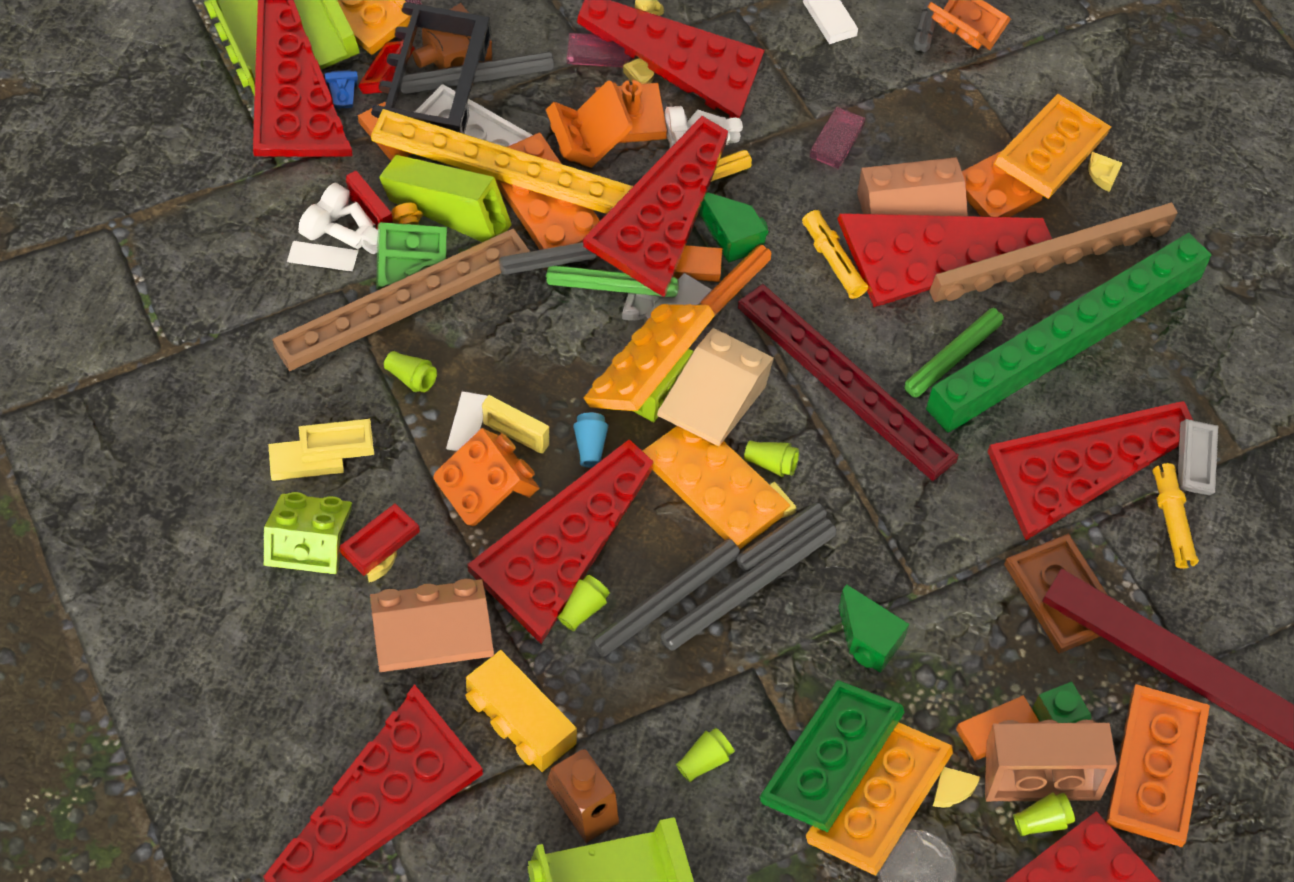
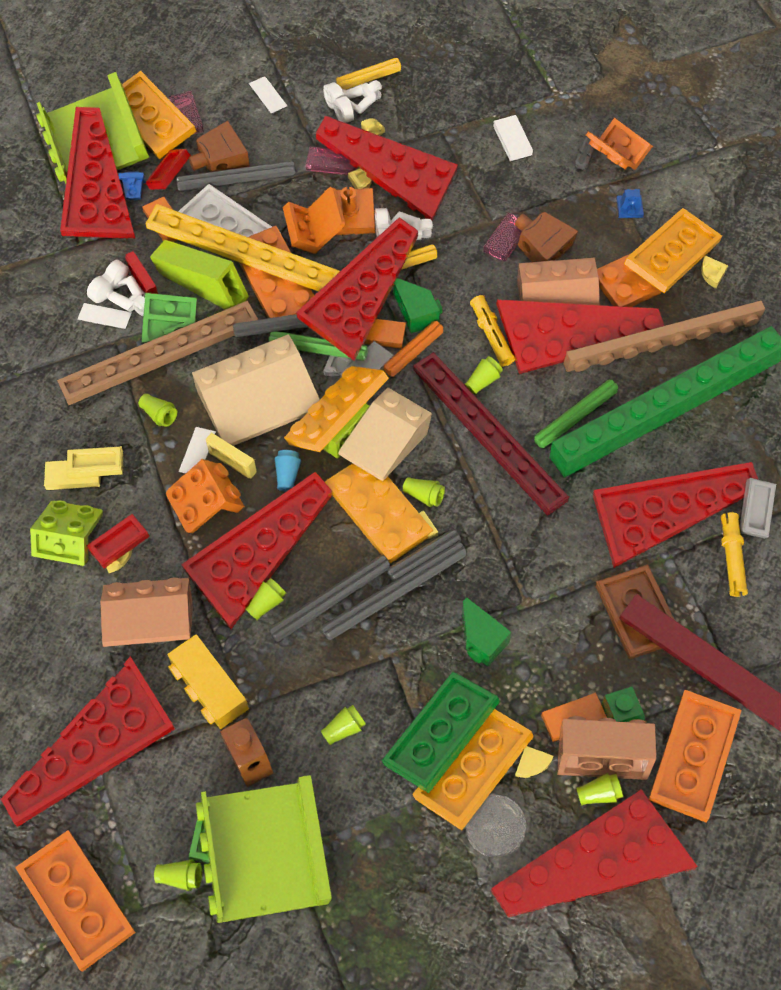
camera: 10 degrees right, 5 degrees up
(406, 214) = (169, 286): light orange plate -> none
(443, 20) = (234, 157): black hinge -> none
(539, 340) = (256, 390): none -> tan slope
(833, 307) = (485, 373): none -> lime cone
(887, 135) = (544, 237): none -> dark orange torso
(990, 92) = (630, 204): none -> blue brick

